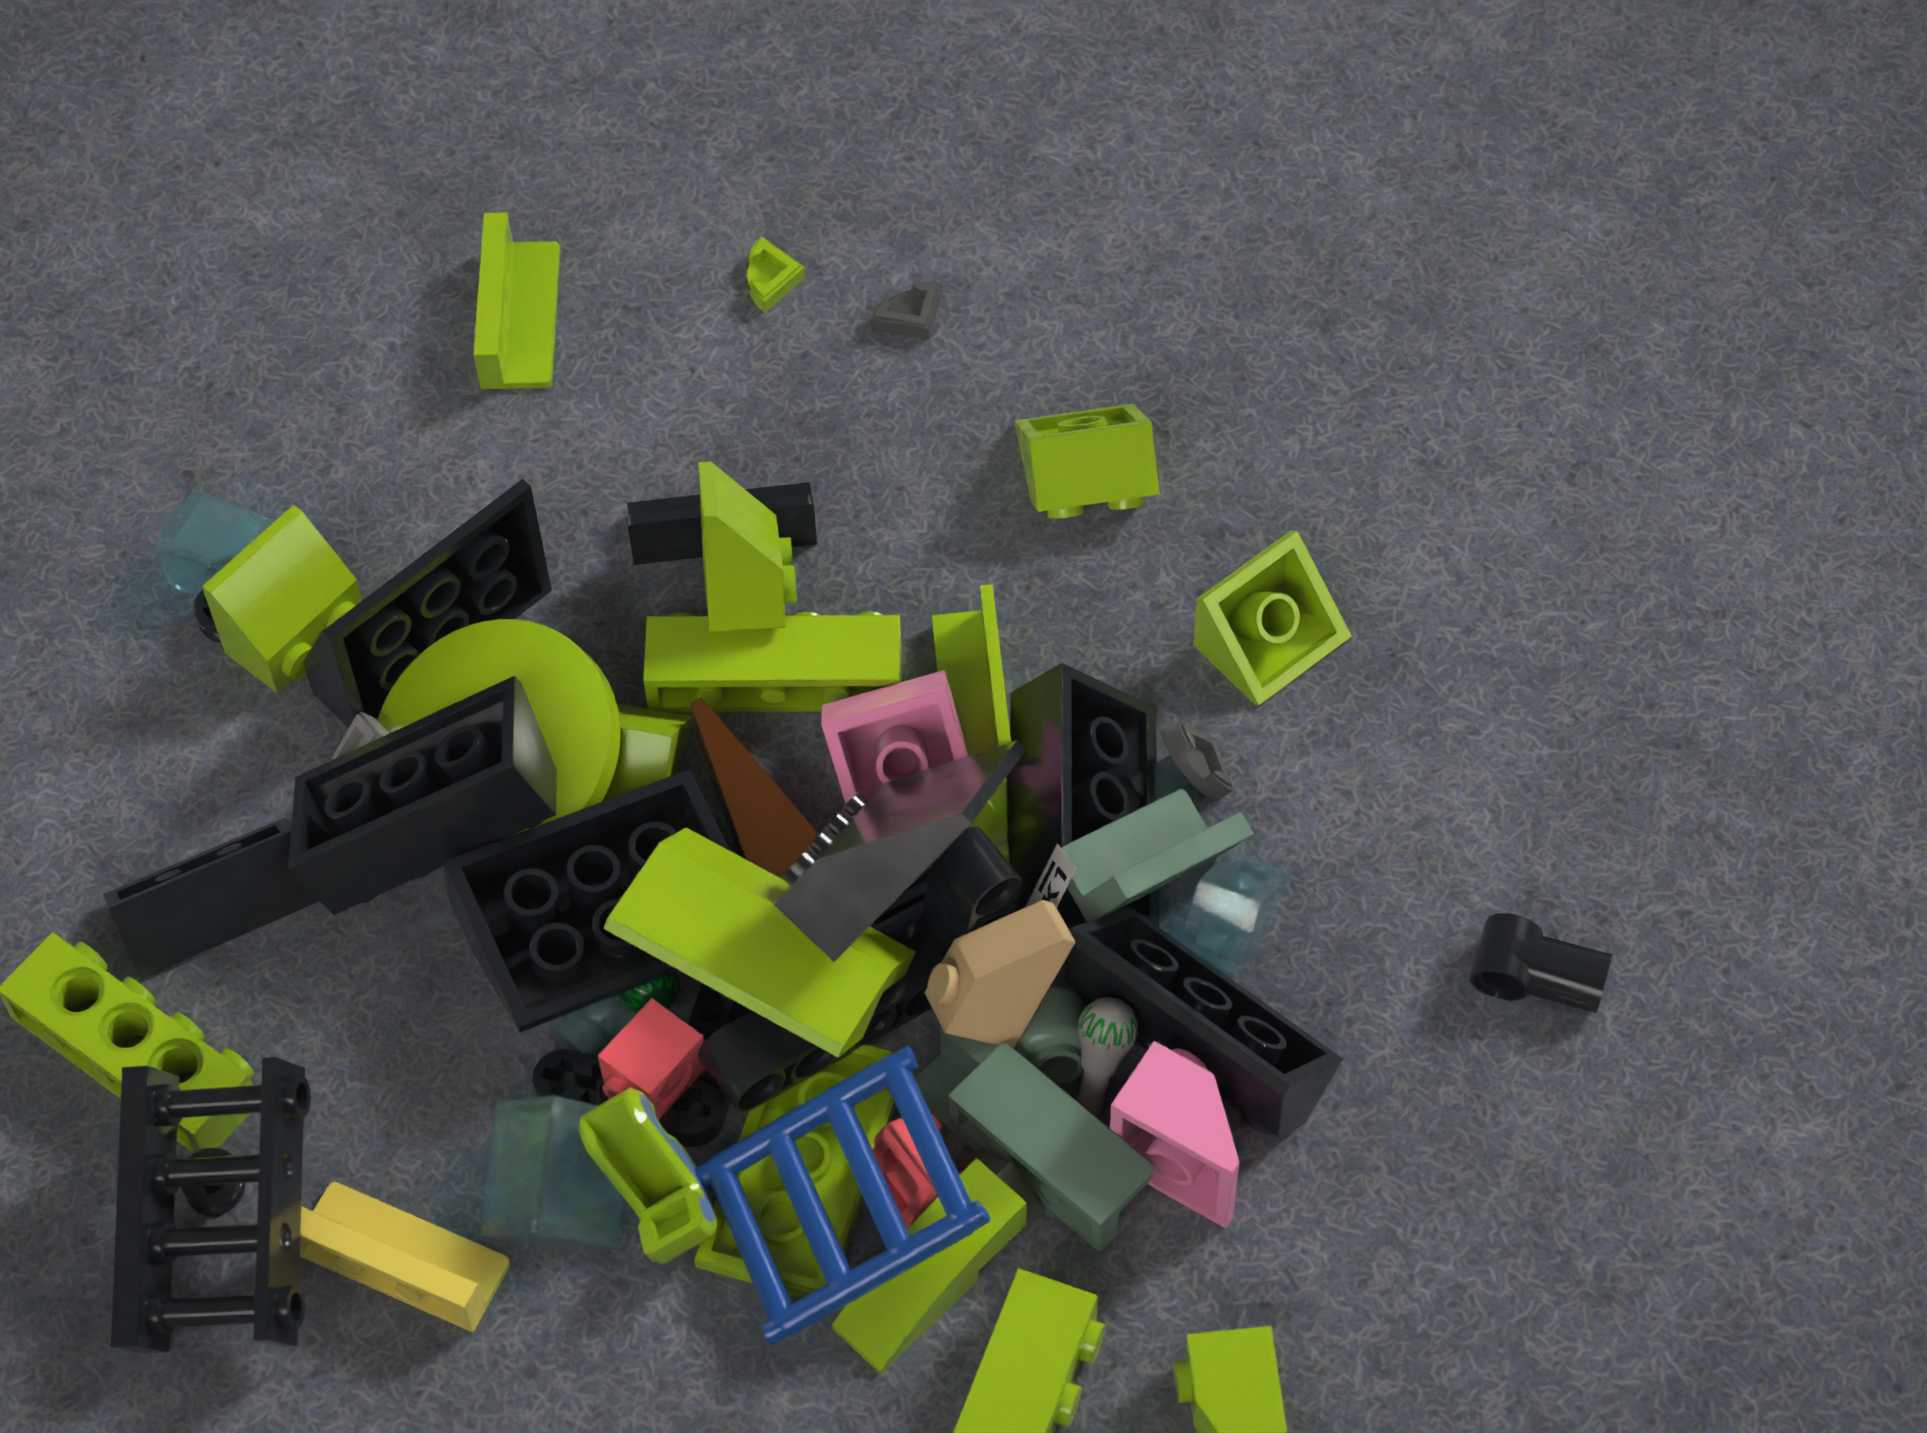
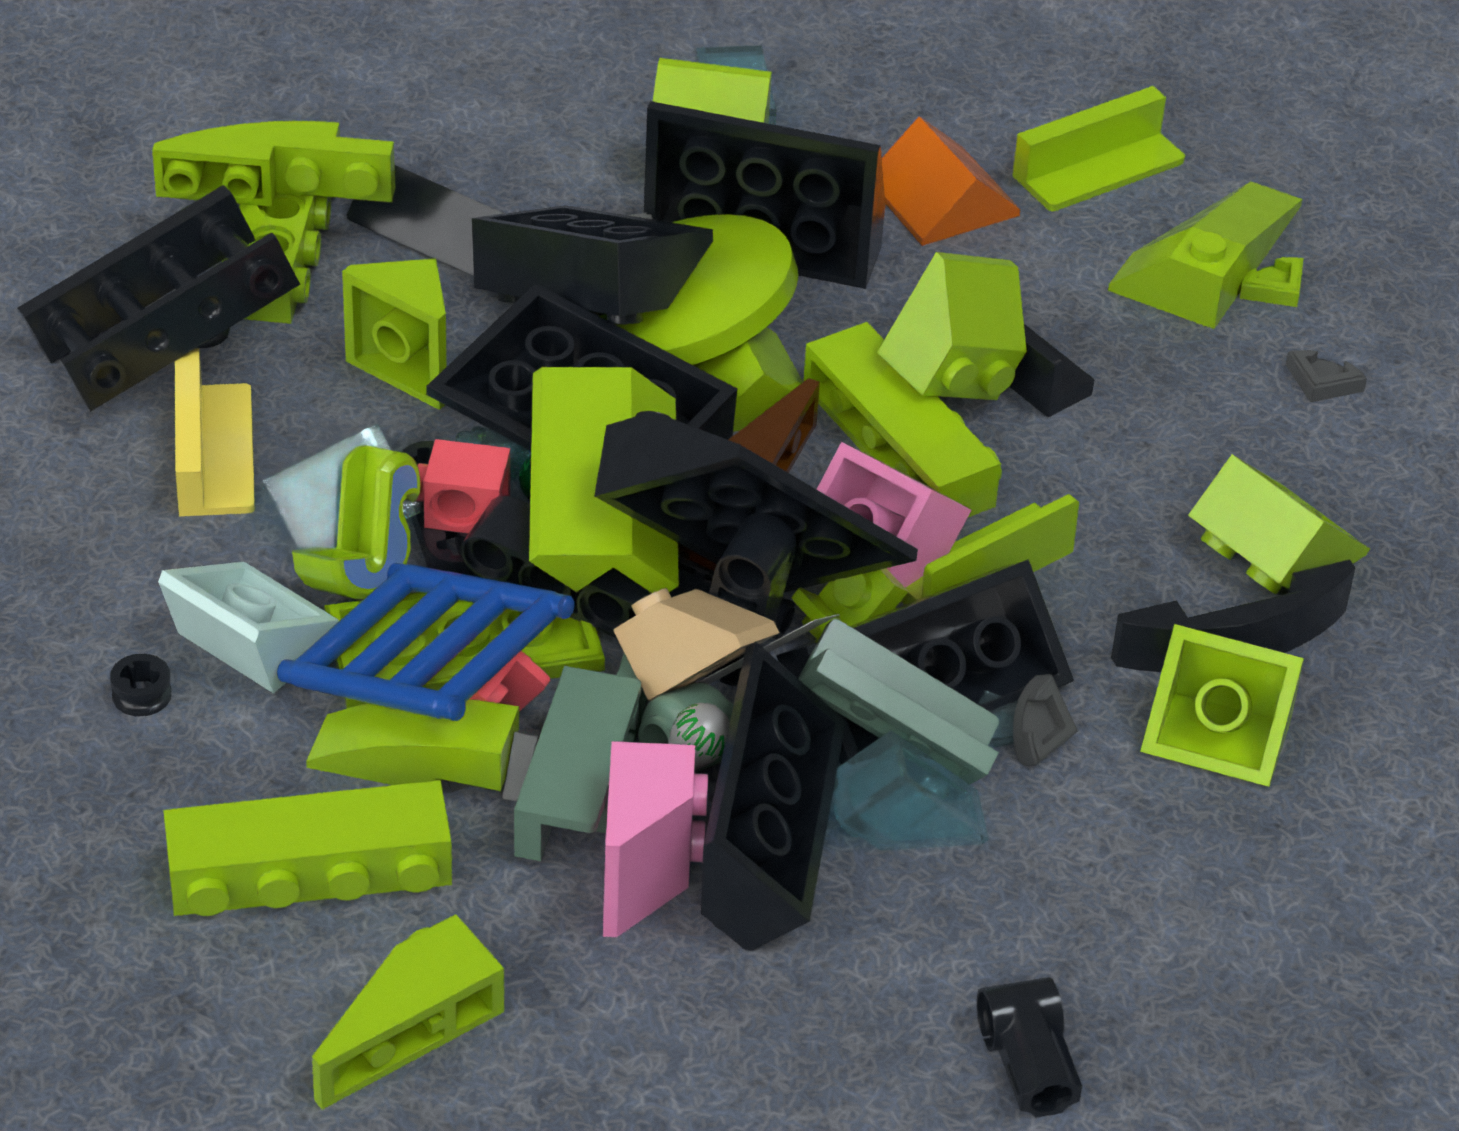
camera: 55 degrees right, 15 degrees down
(74, 1018) = (274, 158): none -> lime slope
(395, 1004) = (396, 323): none -> lime slope
(464, 455) = (940, 186): none -> orange slope
(685, 1330) = (243, 617): none -> light aqua slope
(703, 300) = (1203, 261): none -> lime wedge
(1168, 604) = (1278, 623): none -> black slope

